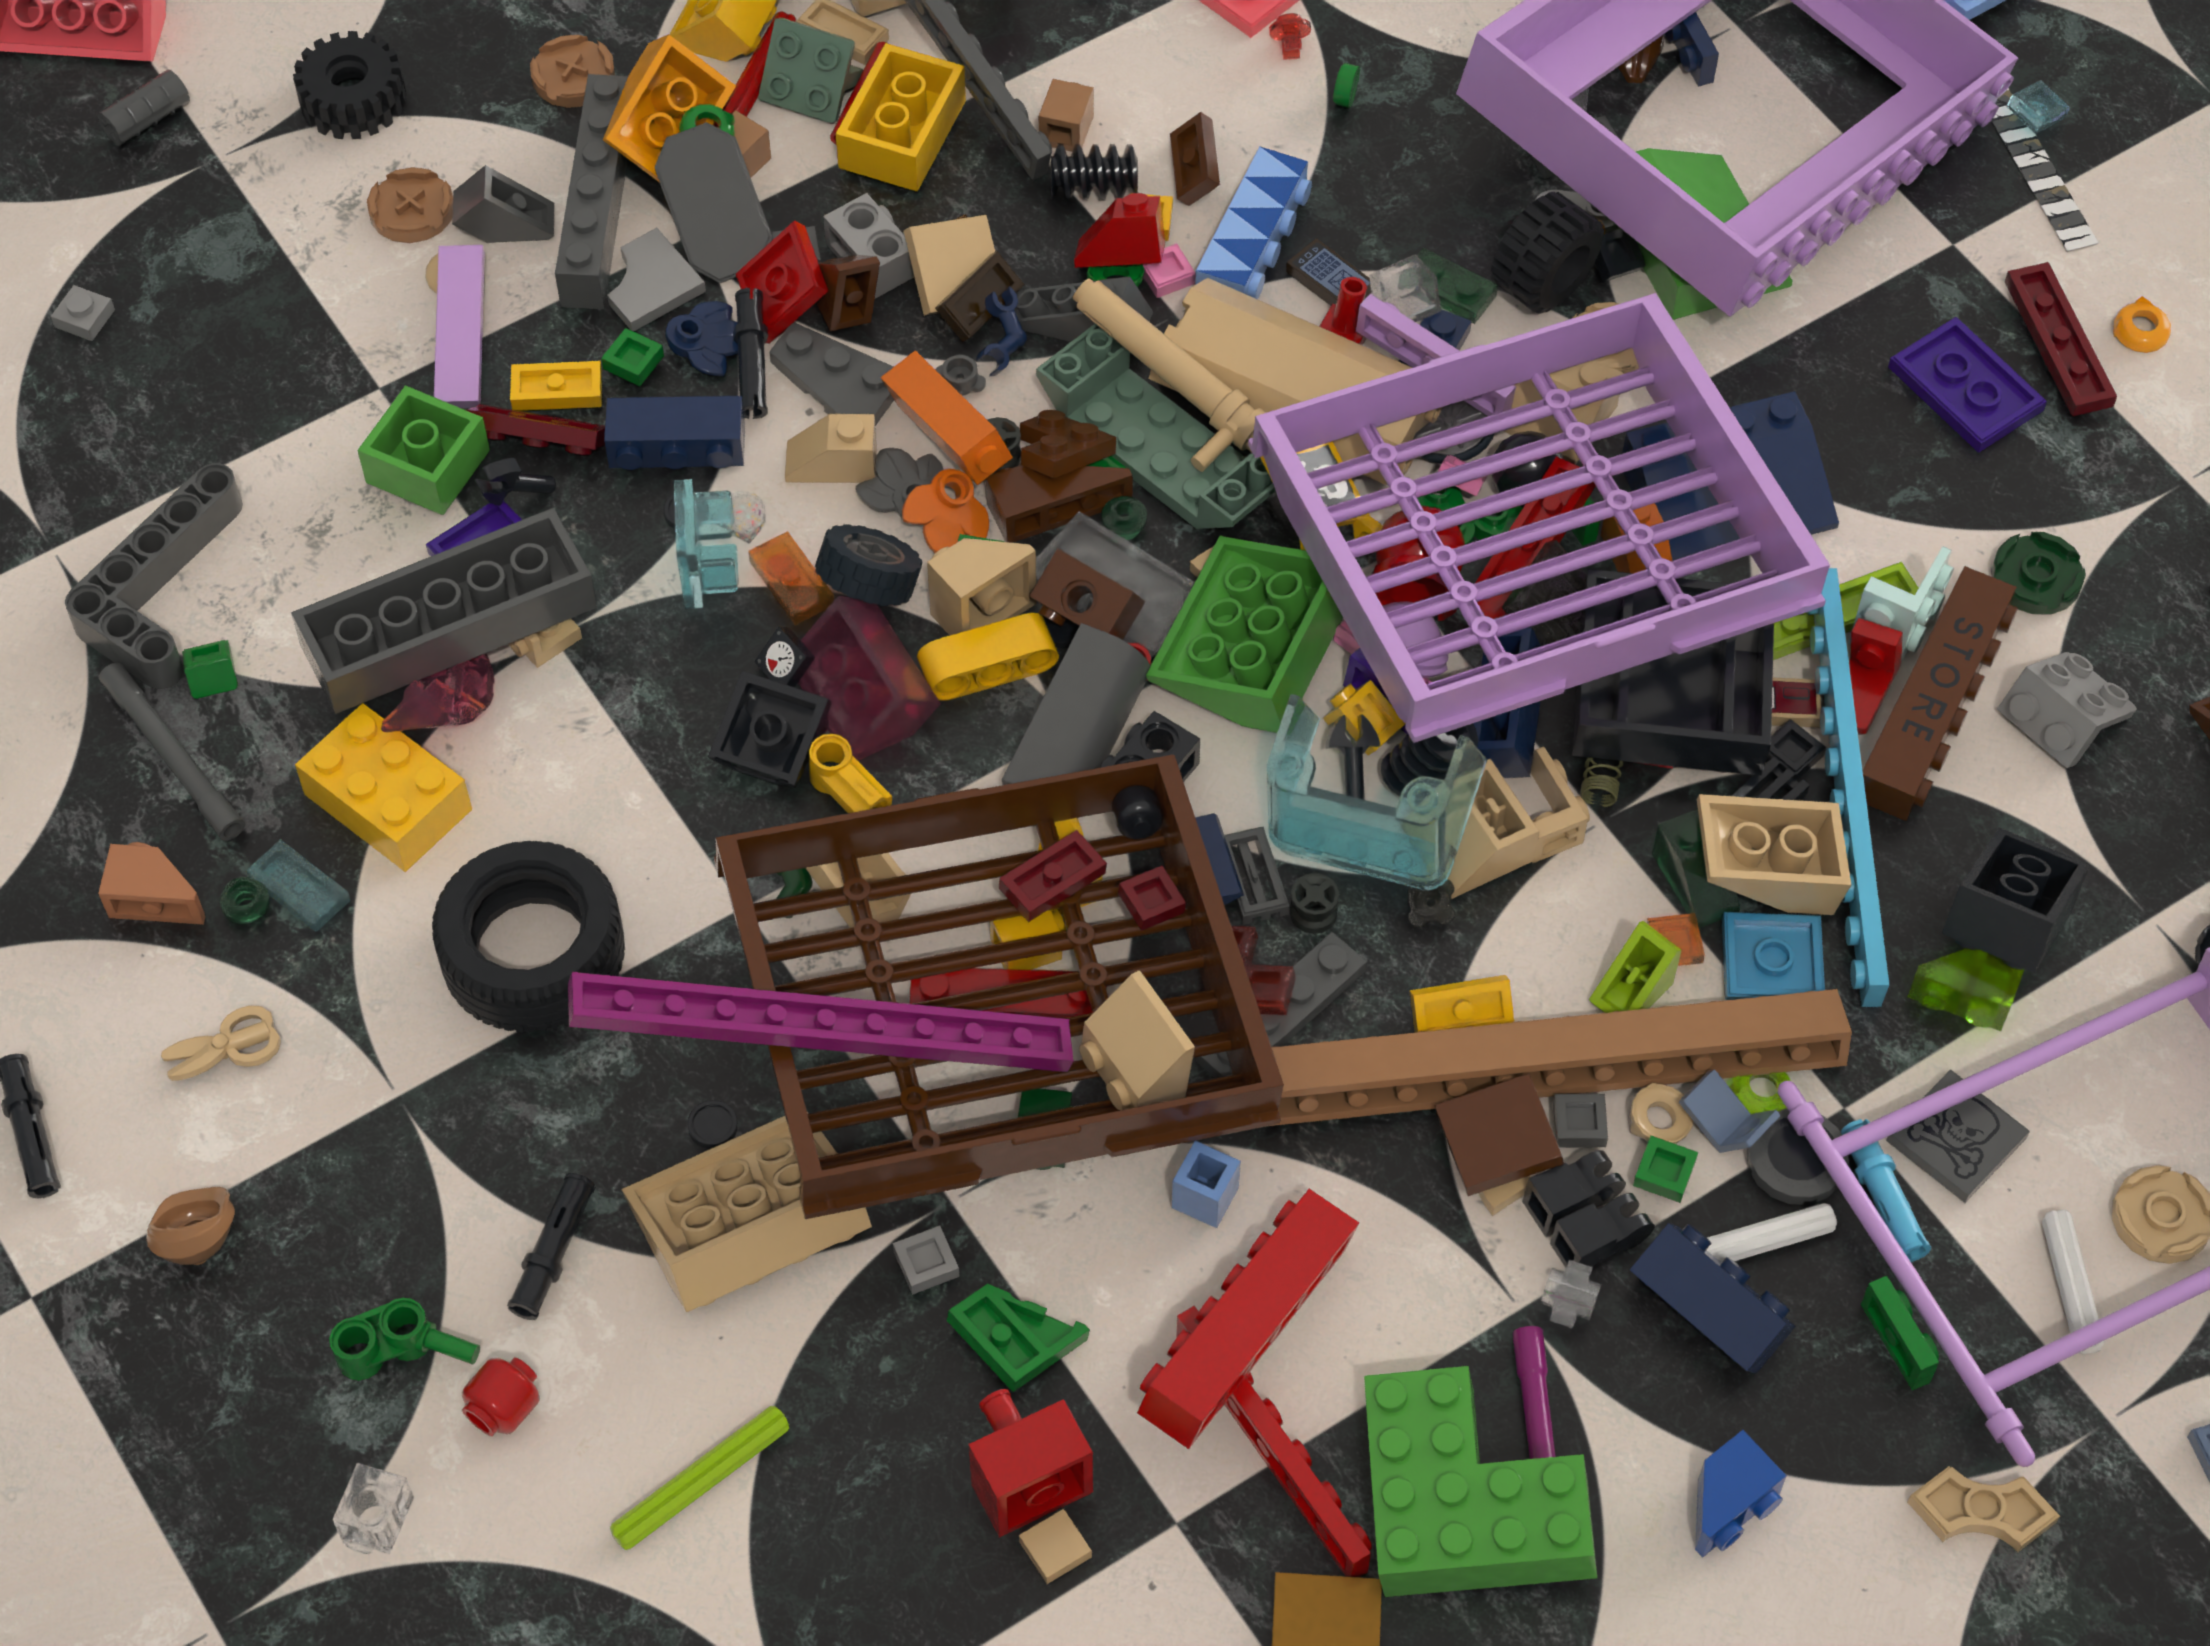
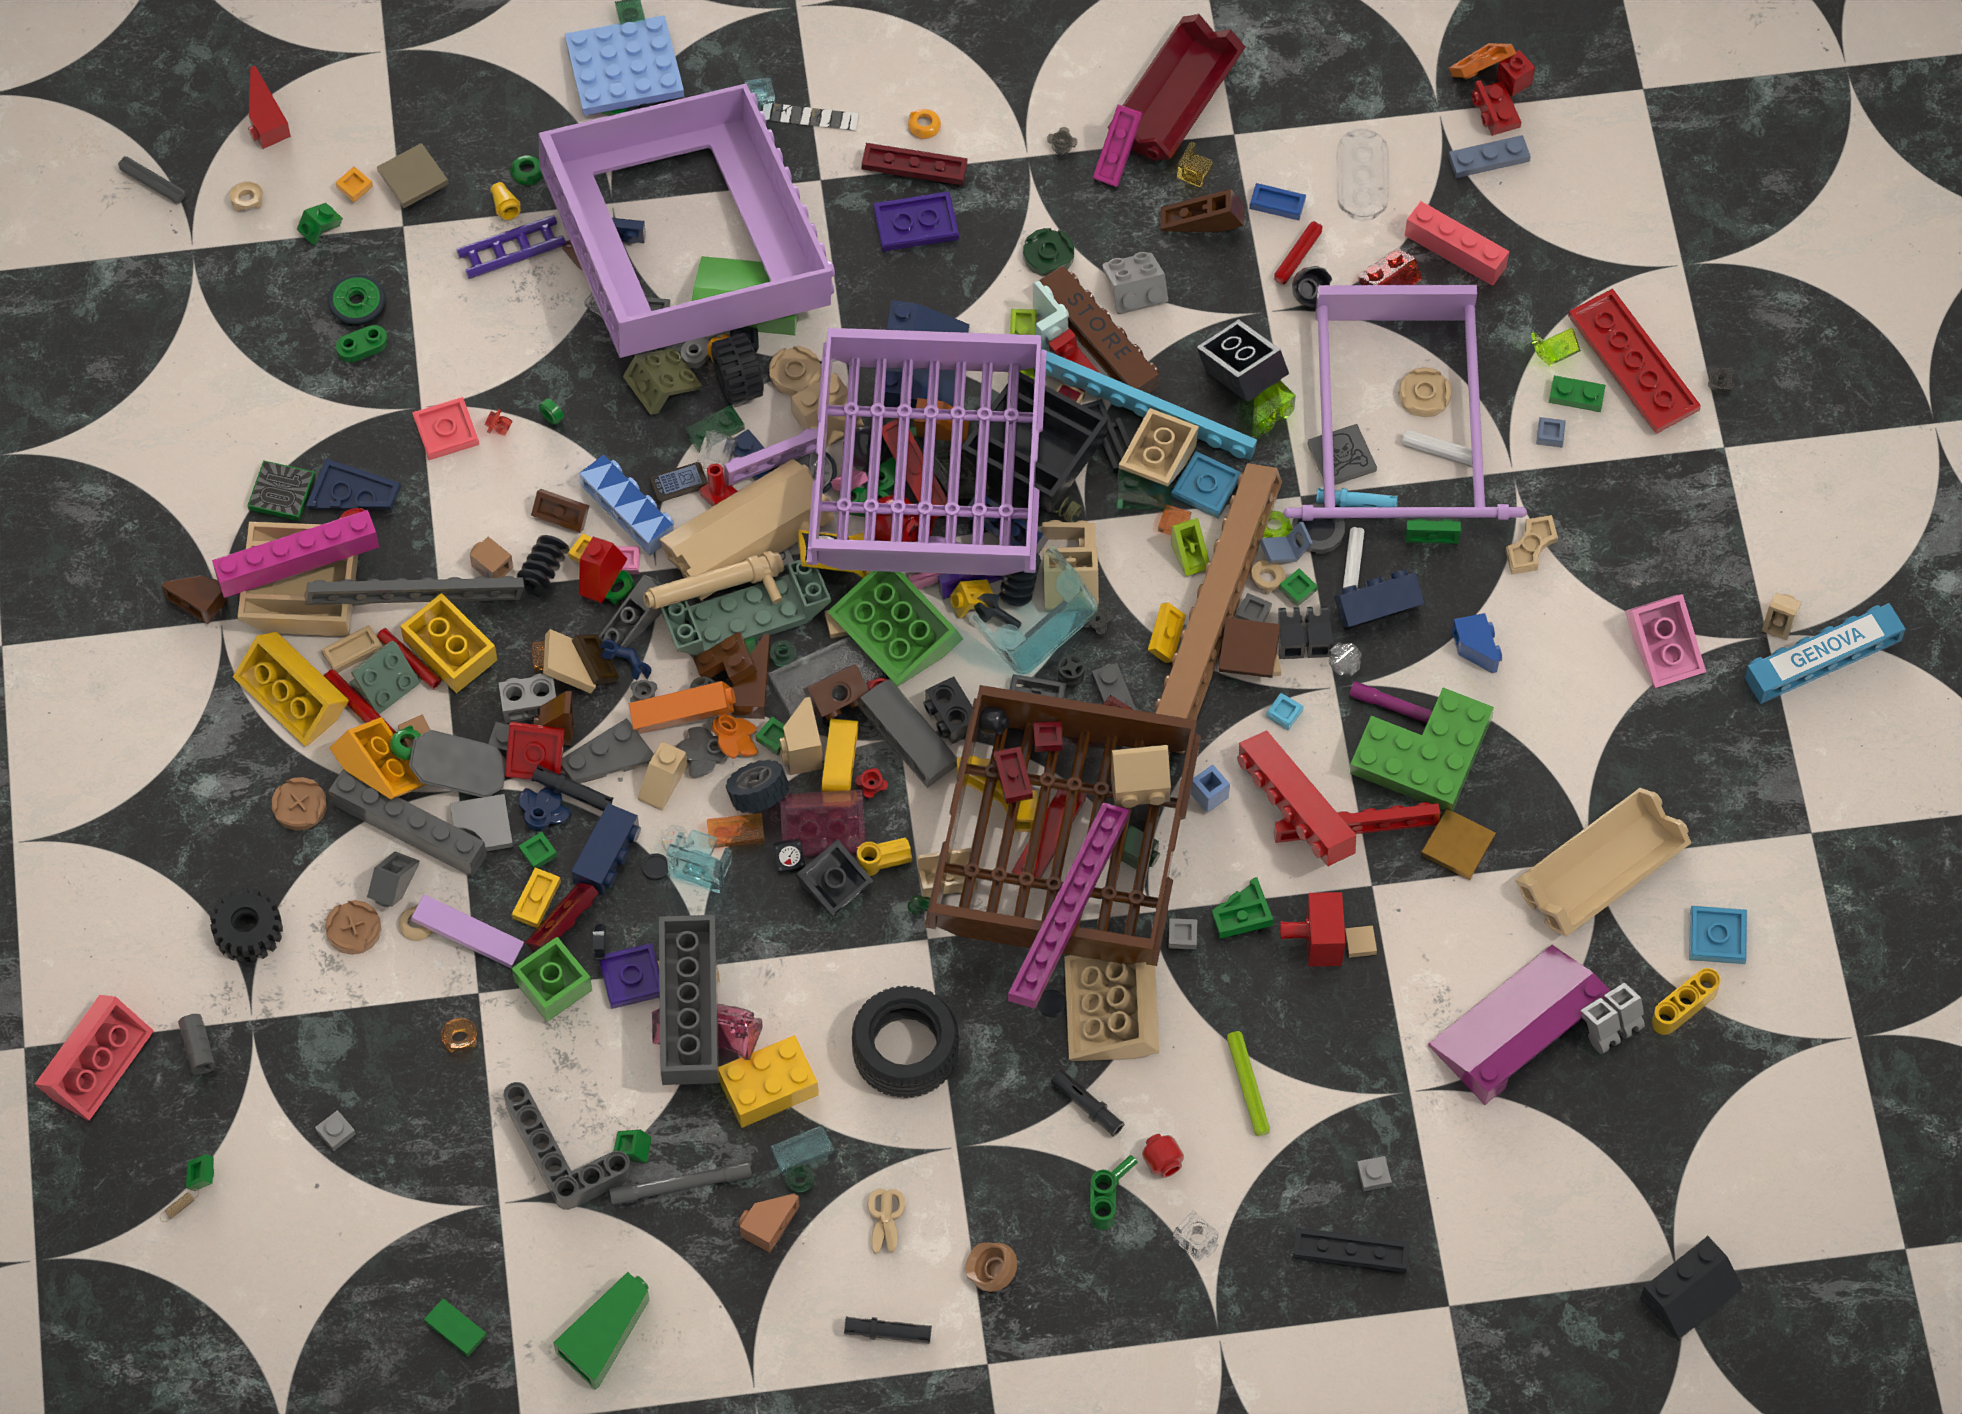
camera: 65 degrees left, 5 degrees up
(290, 376) = (458, 1025): none -> clear orange piece
(969, 707) = (871, 775): none -> red plate
(1426, 1247) = (1284, 711): none -> medium azure tile
(1488, 183) = (657, 376): none -> olive bracket

